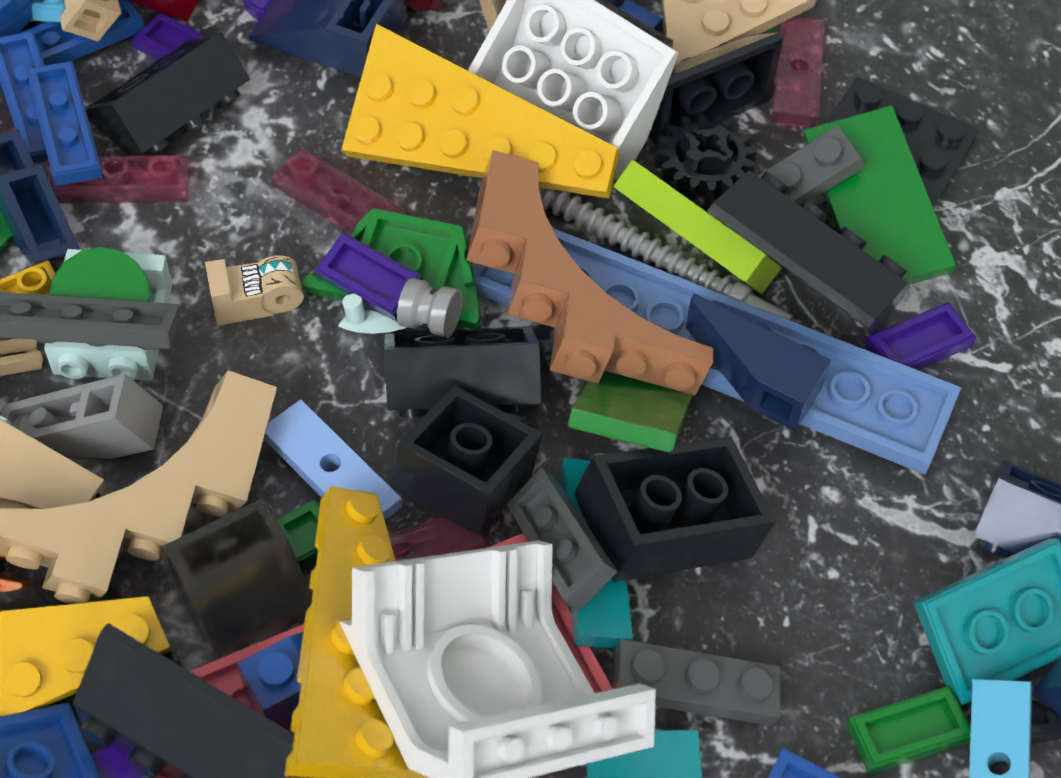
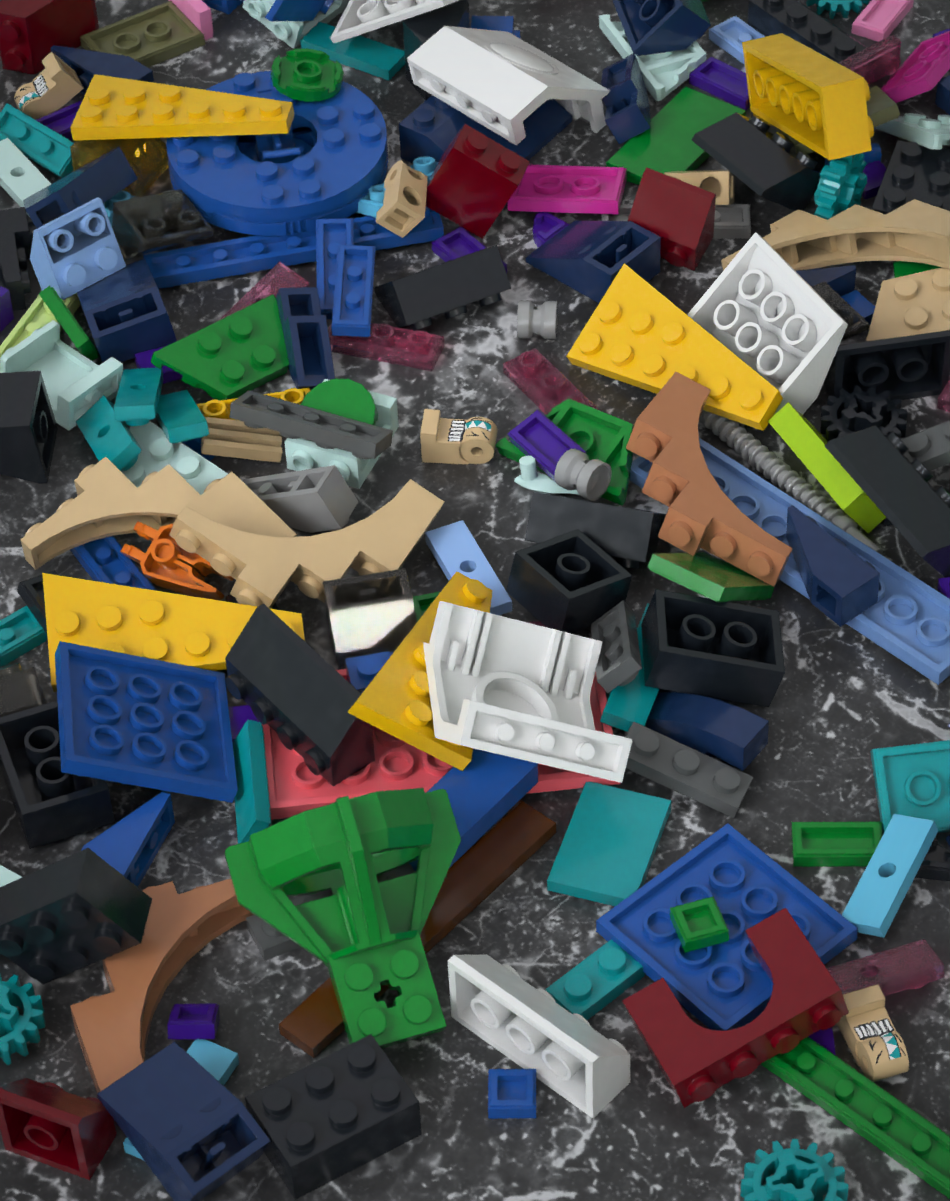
camera: 25 degrees right, 10 degrees down
(292, 111) = (537, 320): none -> light grey wheel
(704, 613) = (710, 726): none -> dark blue slope

